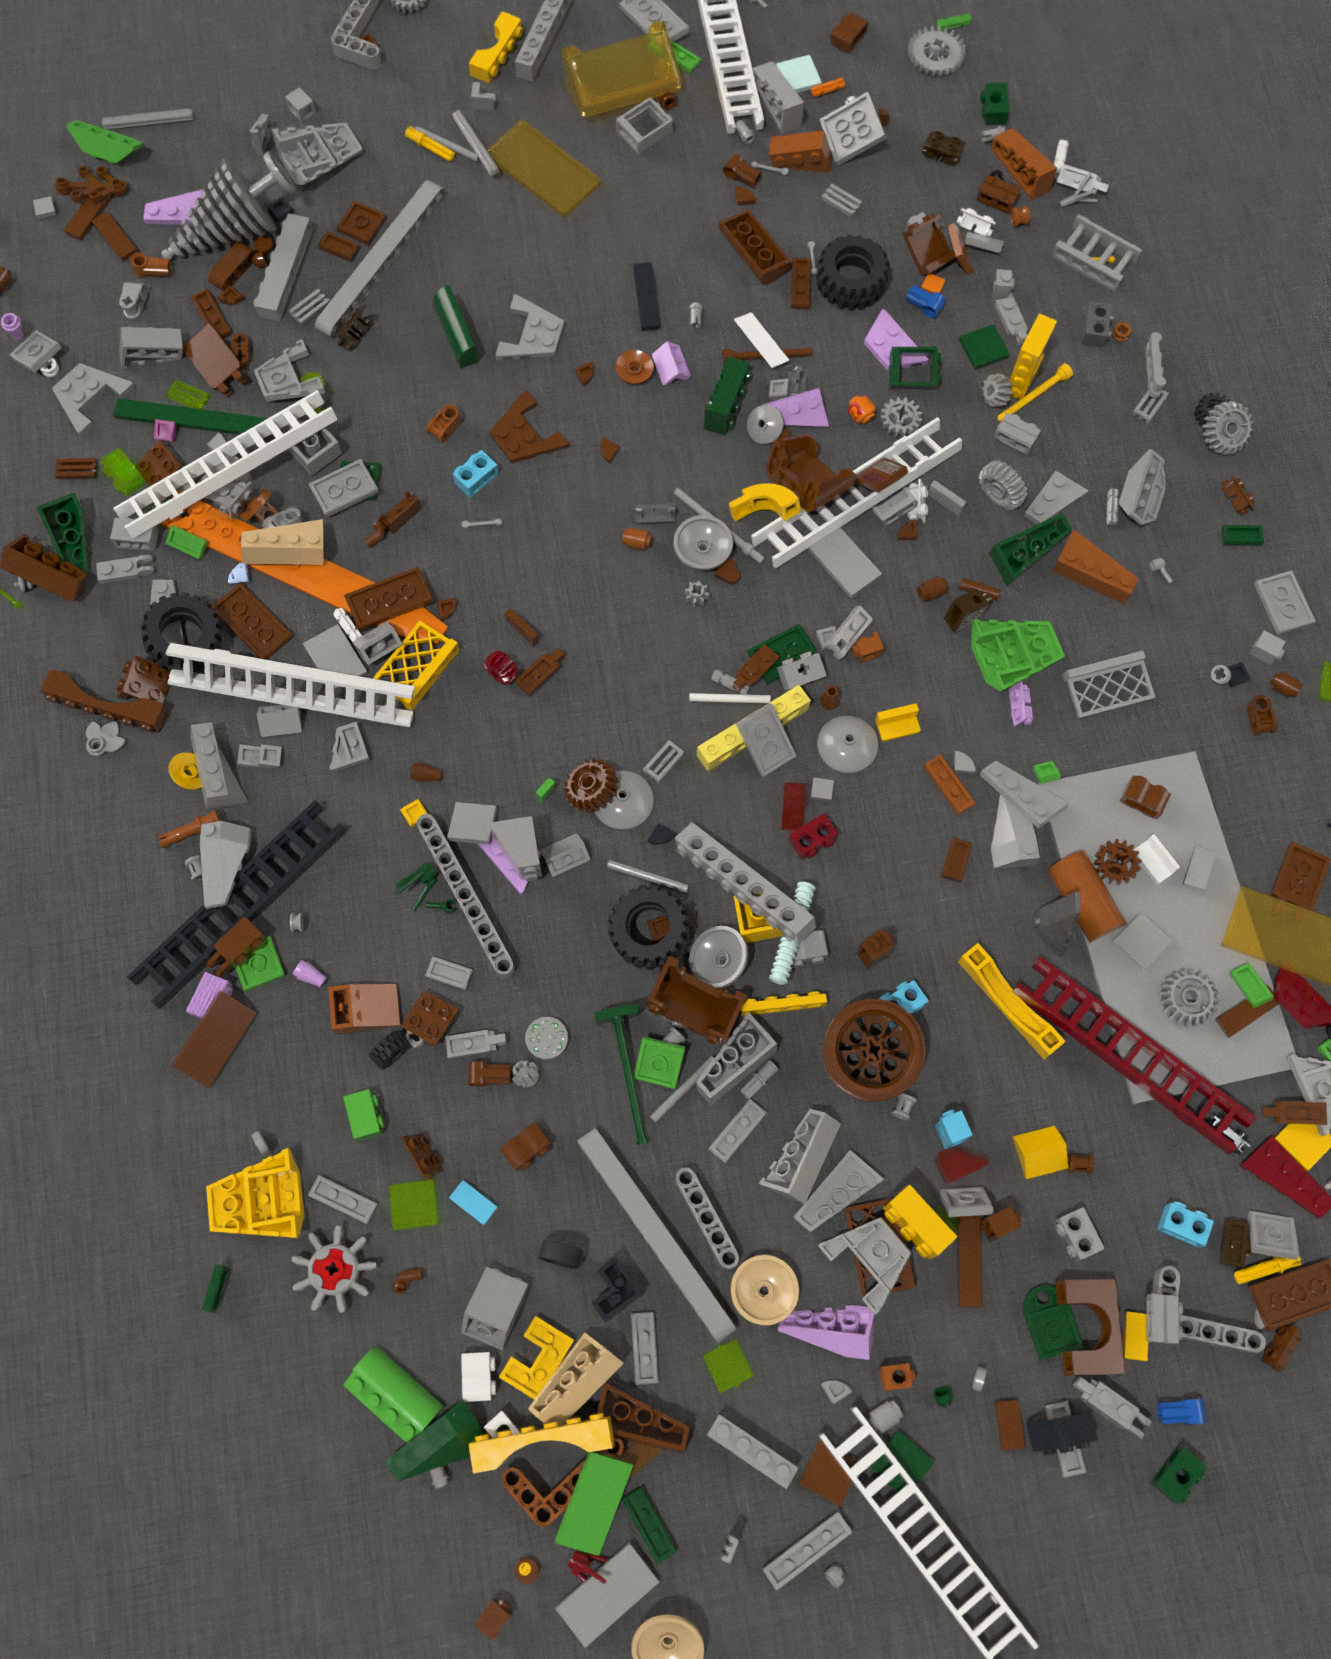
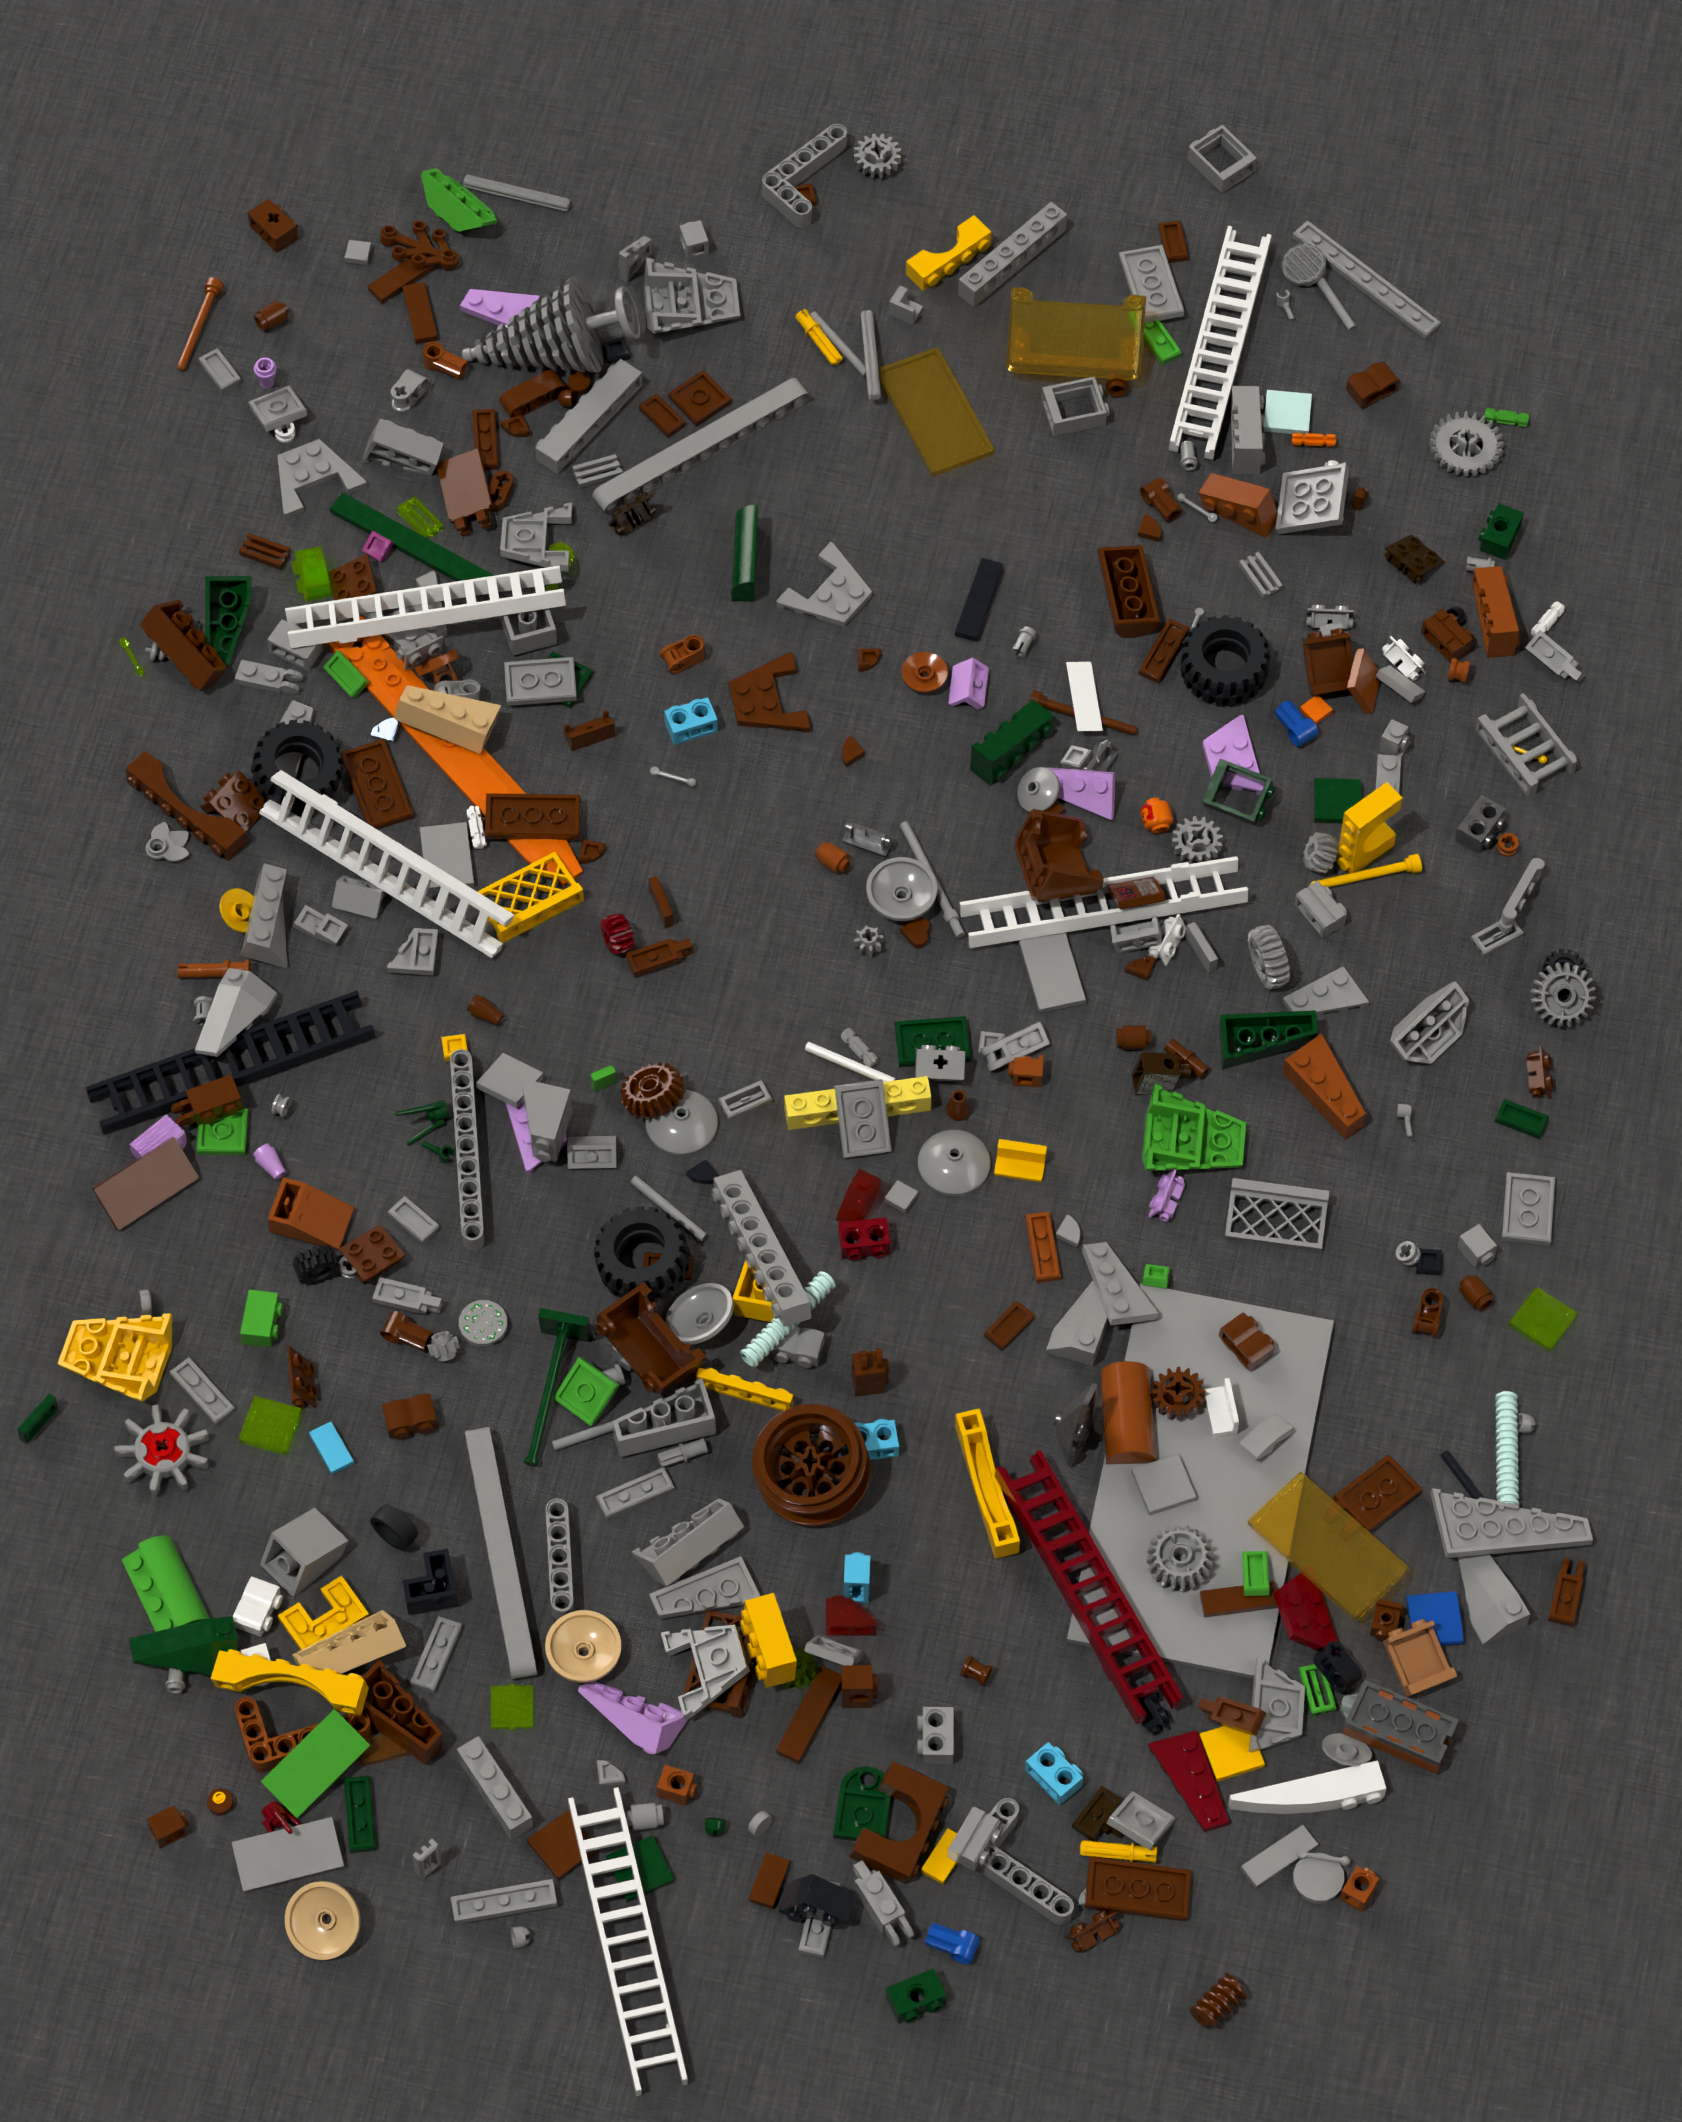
camera: 25 degrees right, 10 degrees down
(377, 535) = (554, 745): reddish brown arm -> none
(377, 643) = (498, 857): light grey brick -> none
(405, 1278) = (229, 1489): reddish brown arm -> none
(755, 668) = (891, 1042): reddish brown hinge -> none
(766, 497) = (993, 867): yellow arch -> none
(900, 214) = (1320, 615): none -> light grey hinge
(901, 1113) = (819, 1540): light grey bush -> none
(1041, 1152) = (941, 1645): yellow slope -> none
(1071, 199) = (1537, 673): light grey plant -> none
(1112, 506) = (1386, 1032): light grey axle -> none

